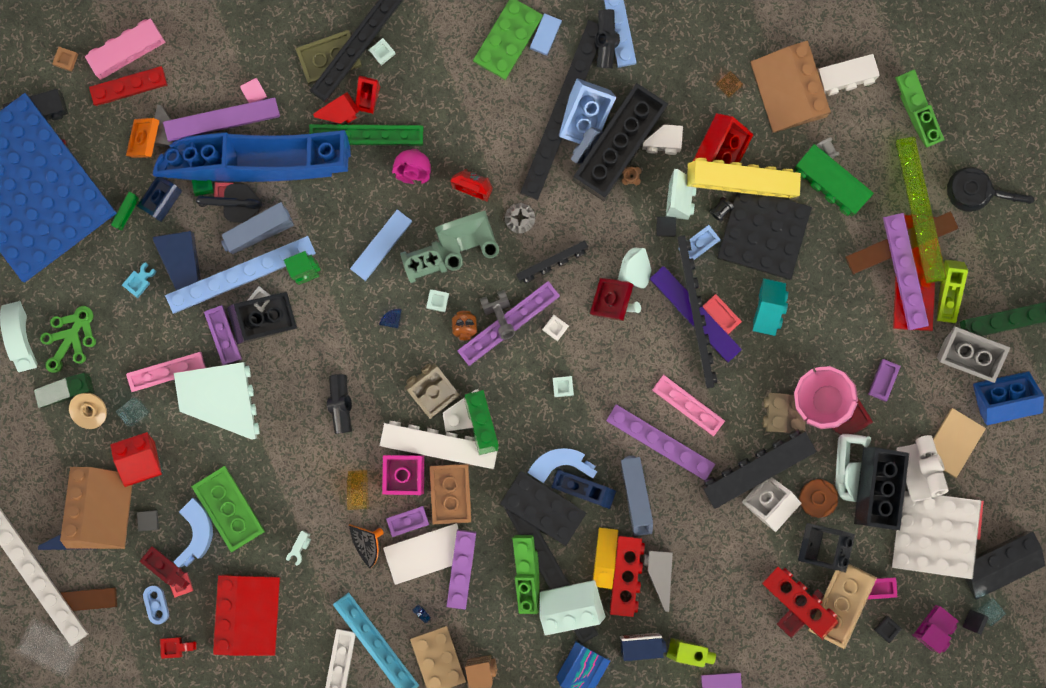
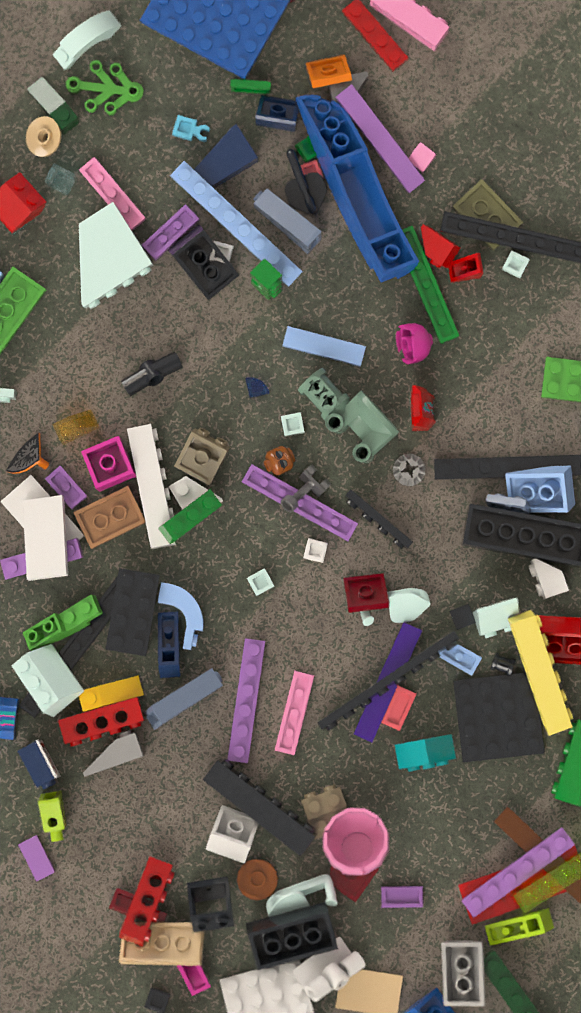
camera: 65 degrees right, 0 degrees up
(445, 558) = (45, 538): none -> white tile
(631, 171) = (495, 567): medium nougat plate -> none

